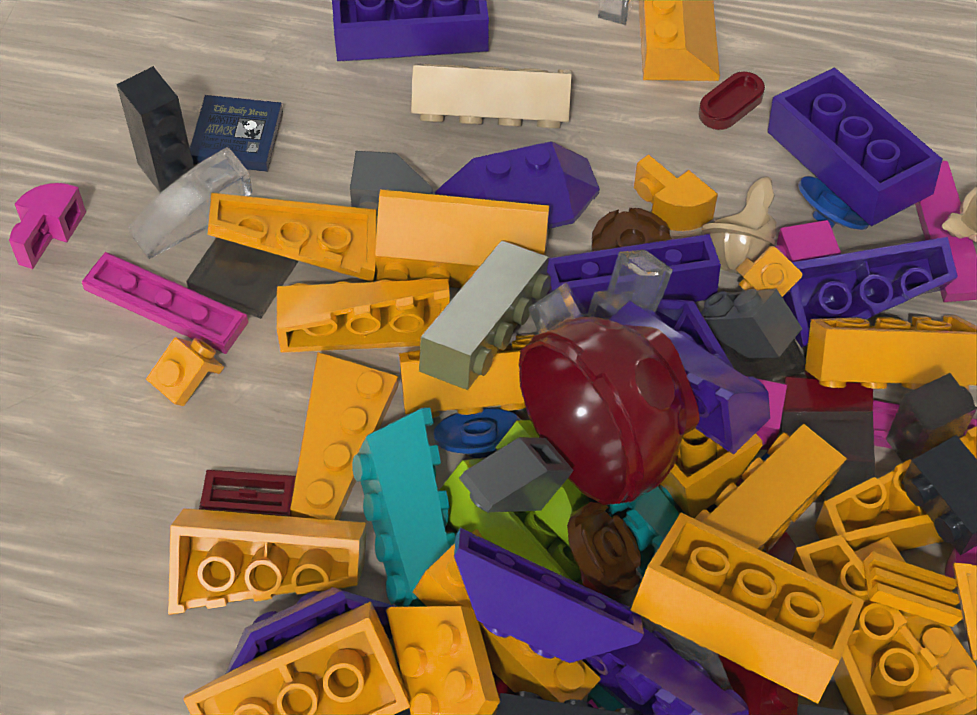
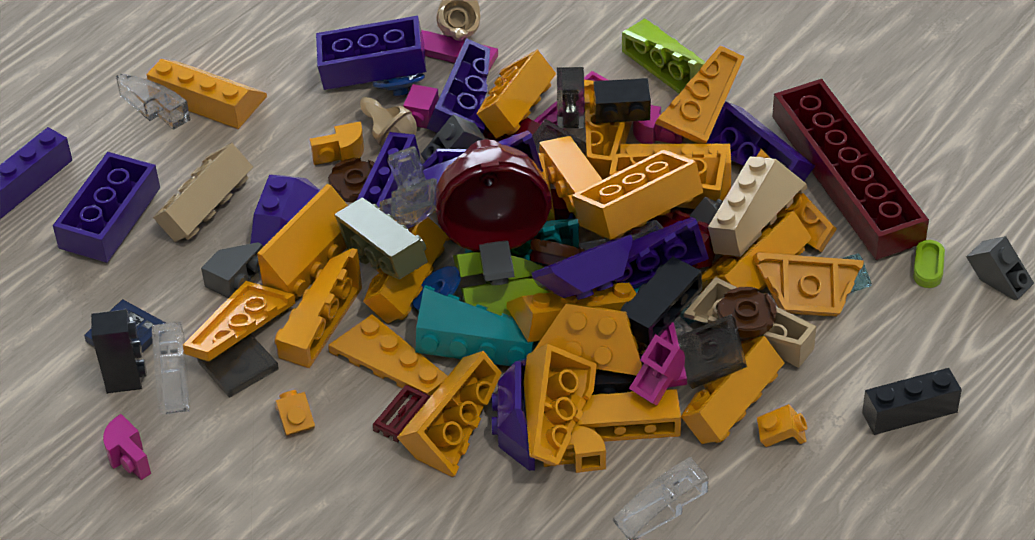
camera: 60 degrees left, 10 degrees down
(165, 302) = (230, 411): dark pink tile -> none
(731, 100) = (288, 95): dark red tile -> none
(769, 271) = (437, 115): light orange bracket -> none
(907, 584) = (659, 140): light orange tile -> none

